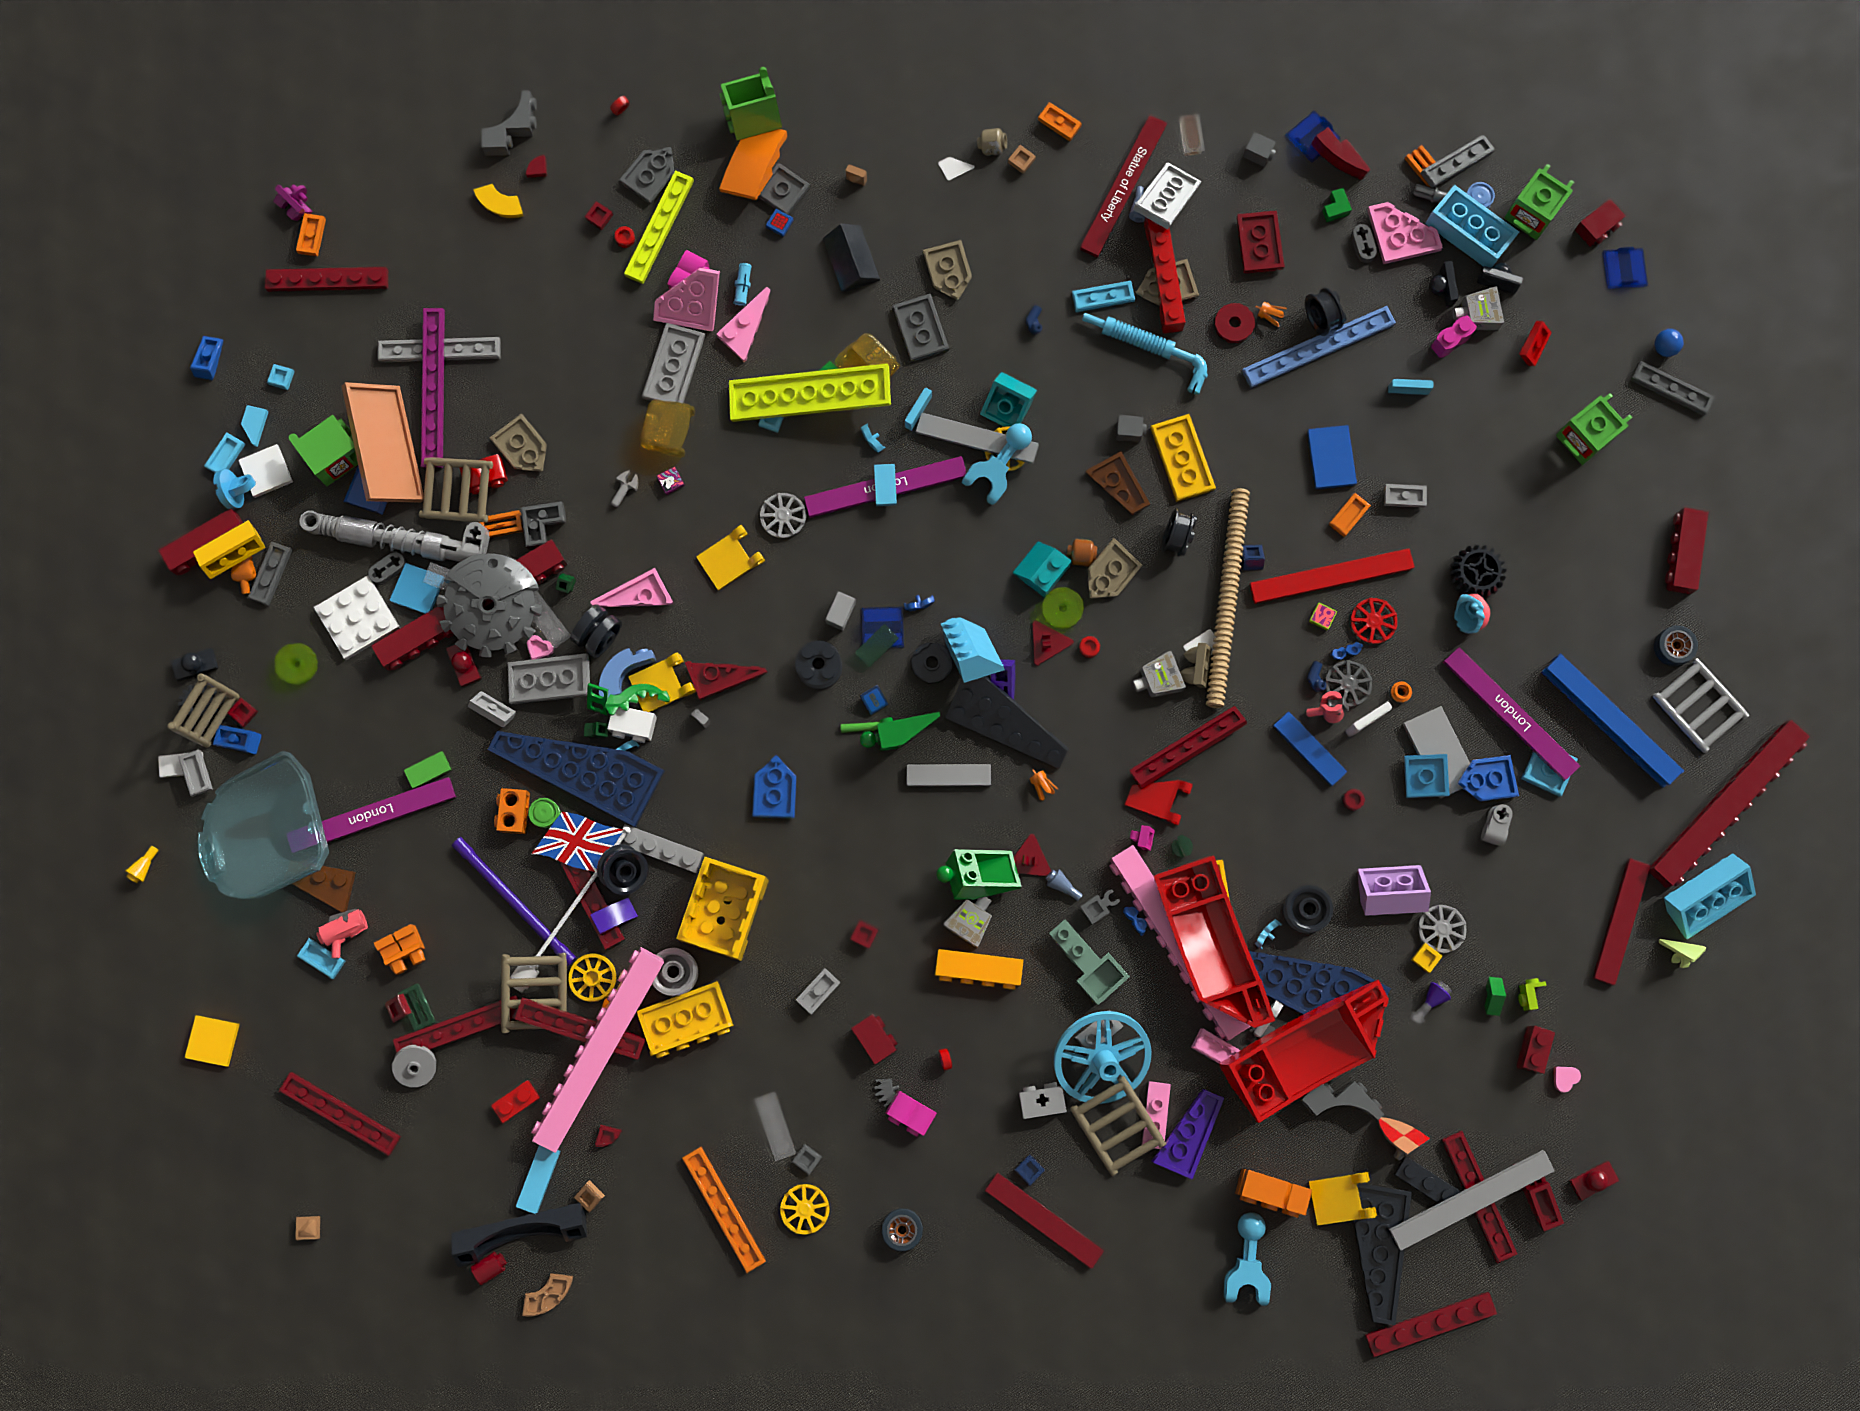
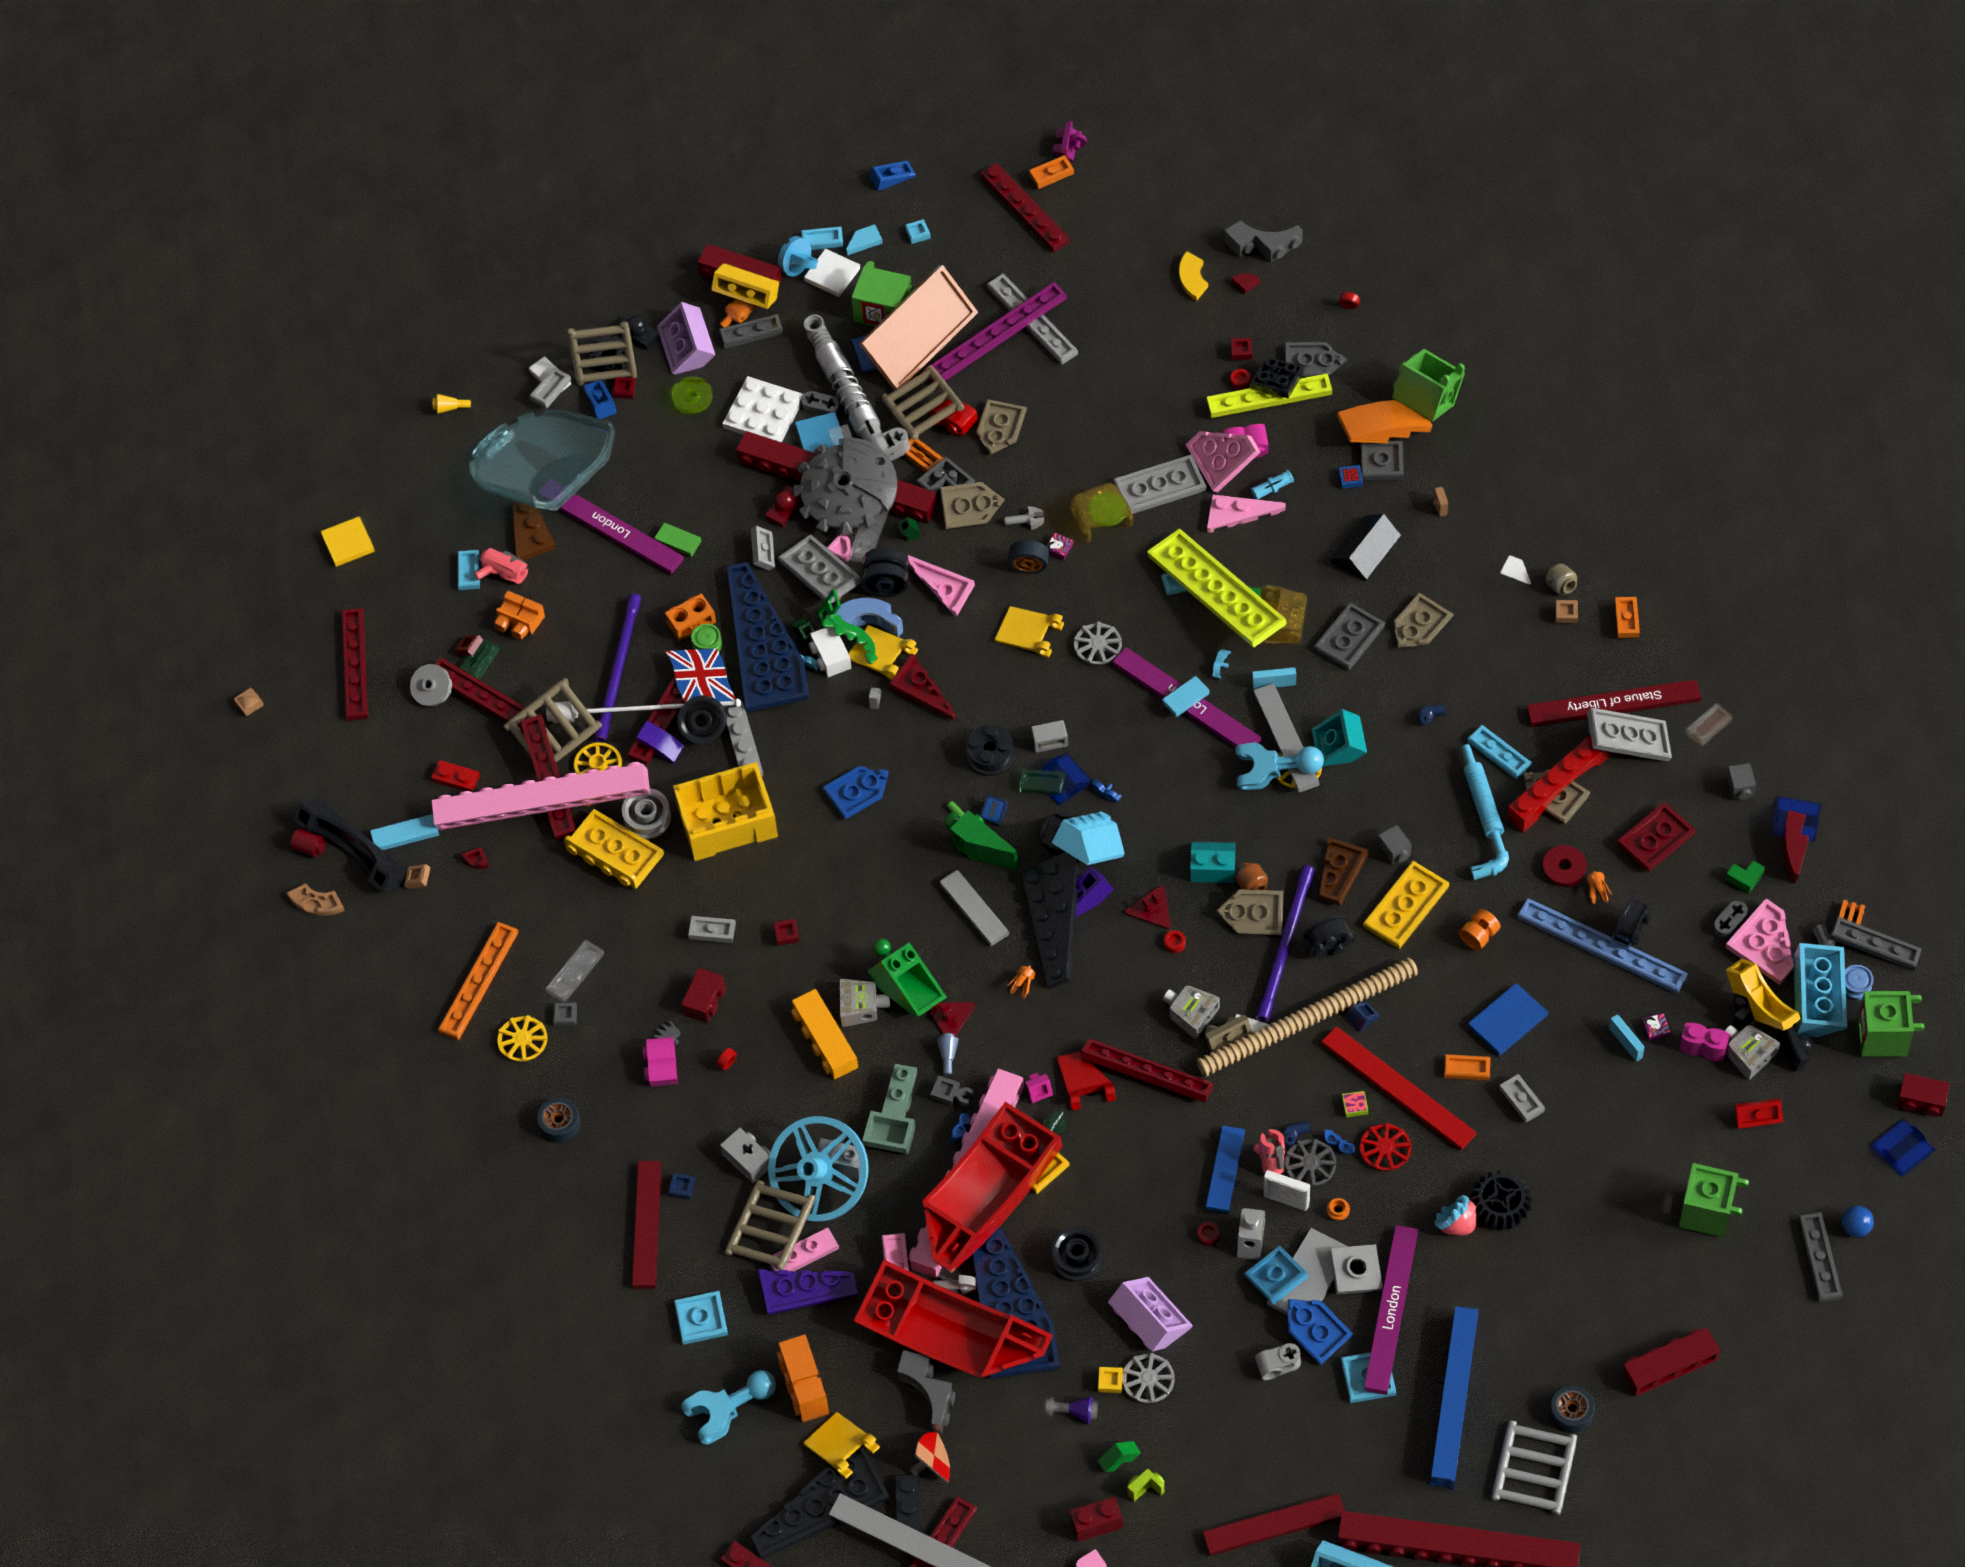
camera: 60 degrees right, 20 degrees down
(236, 631) = (685, 339): none -> lavender slope
(580, 522) = (968, 504): none -> dark tan tile
(650, 209) = (1277, 377): none -> black tile
(667, 511) = (1028, 557): none -> black wheel
(675, 421) = (1107, 509): none -> clear neon green piece
(1062, 597) = (1191, 888): clear neon green plate -> none
(1155, 1232) = (701, 1317): none -> medium azure tile
(1192, 617) = (1266, 1003): none -> dark purple piece
(1247, 420) = (1480, 929): none -> orange wheel
(1266, 932) = (1027, 1236): medium azure piece -> none
(1381, 768) = (1251, 1229): none -> light grey torso
(1413, 359) = (1656, 1026): none -> tile
(1450, 720) = (1345, 1279): none -> light grey piece
(1462, 273) = (1765, 1005): none -> yellow arch

